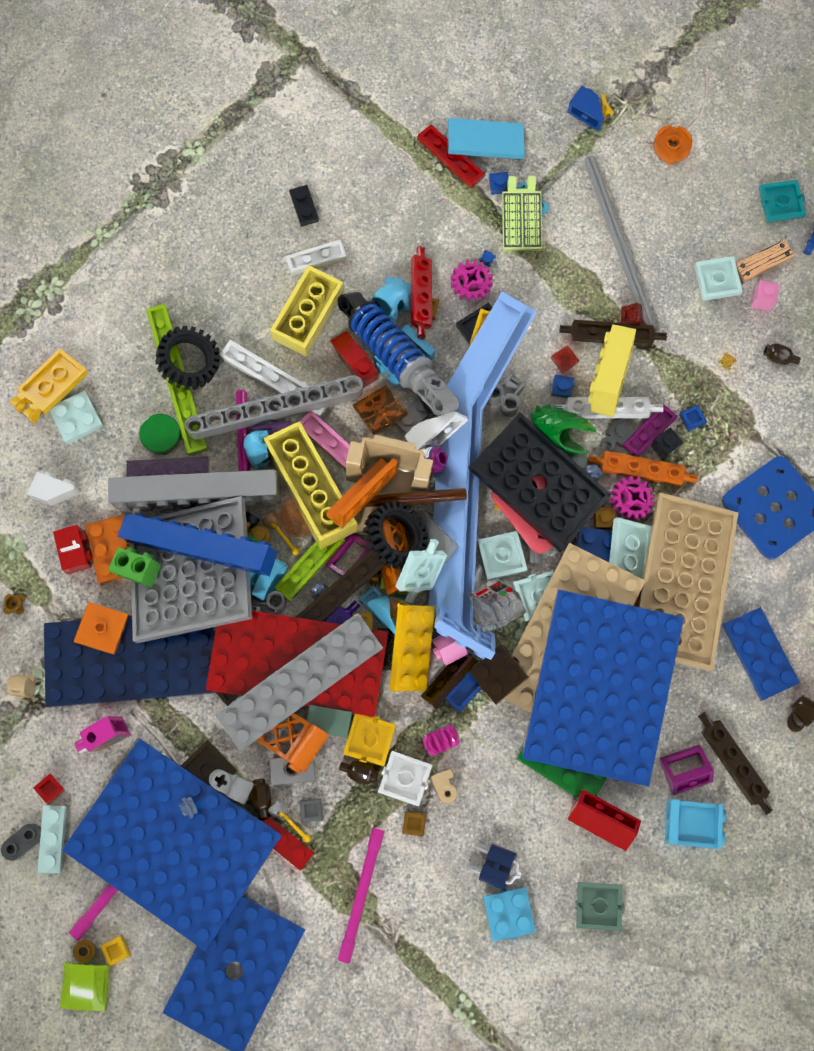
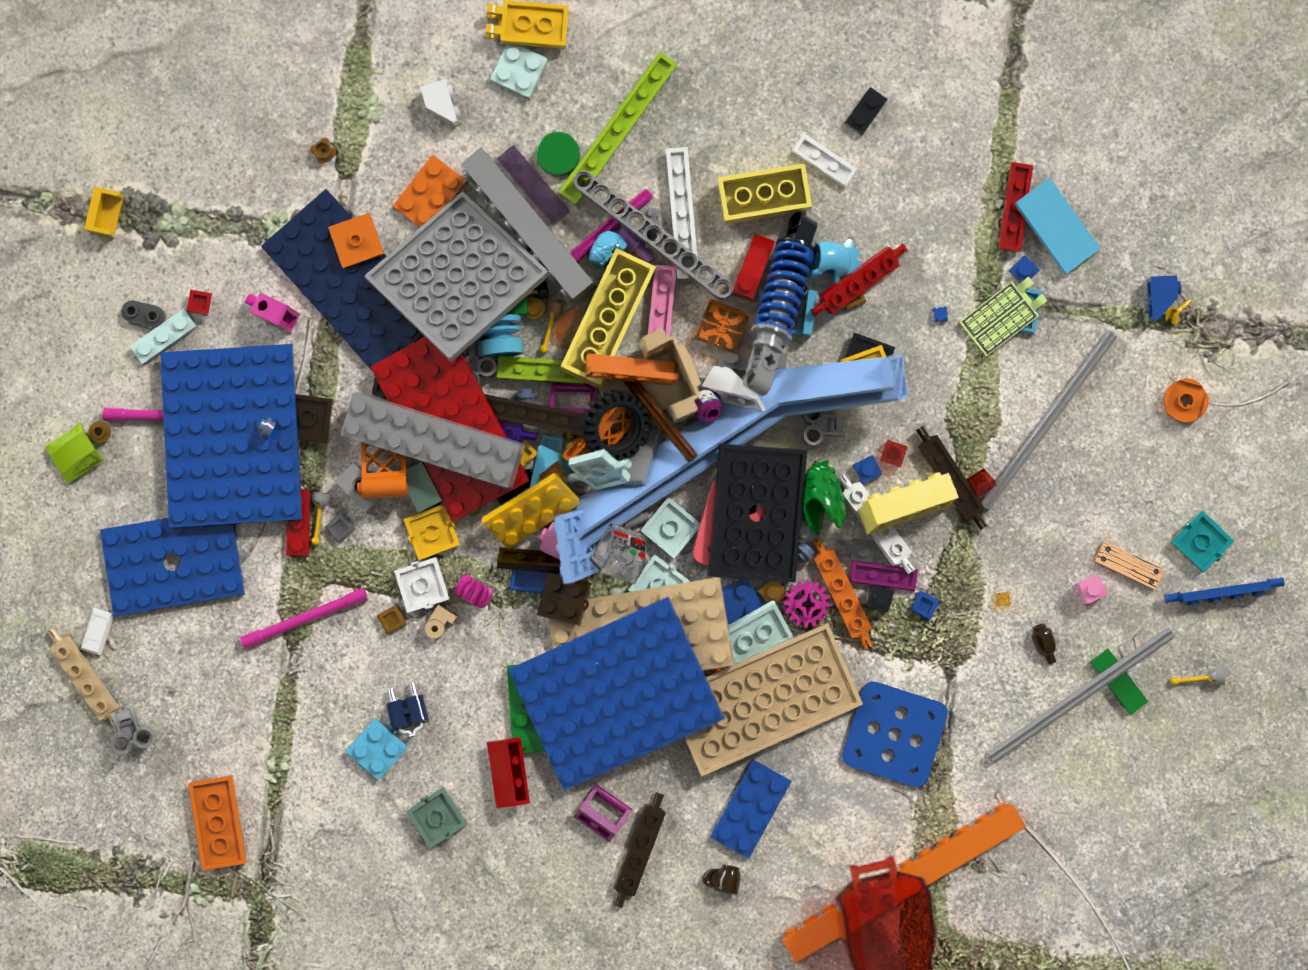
camera: 60 degrees right, 10 degrees up
(21, 686) = (262, 213): tan leg -> none
(72, 549) = (404, 162): red brick -> none
(115, 950) = (118, 456): yellow tile -> none
(130, 565) = (423, 229): bright green brick -> none
(172, 372) = (665, 132): black tyre -> none
(198, 544) = (479, 267): blue brick -> none
(233, 786) = (311, 452): light grey piece -> none
(261, 797) = (319, 478): dark brown plant -> none
(360, 772) = (399, 544): dark brown plant -> none
(476, 287) = (905, 307): dark pink gear -> none
(694, 824) = (561, 850): medium azure panel -> none
(718, 278) = (1078, 535): light aqua plate -> none

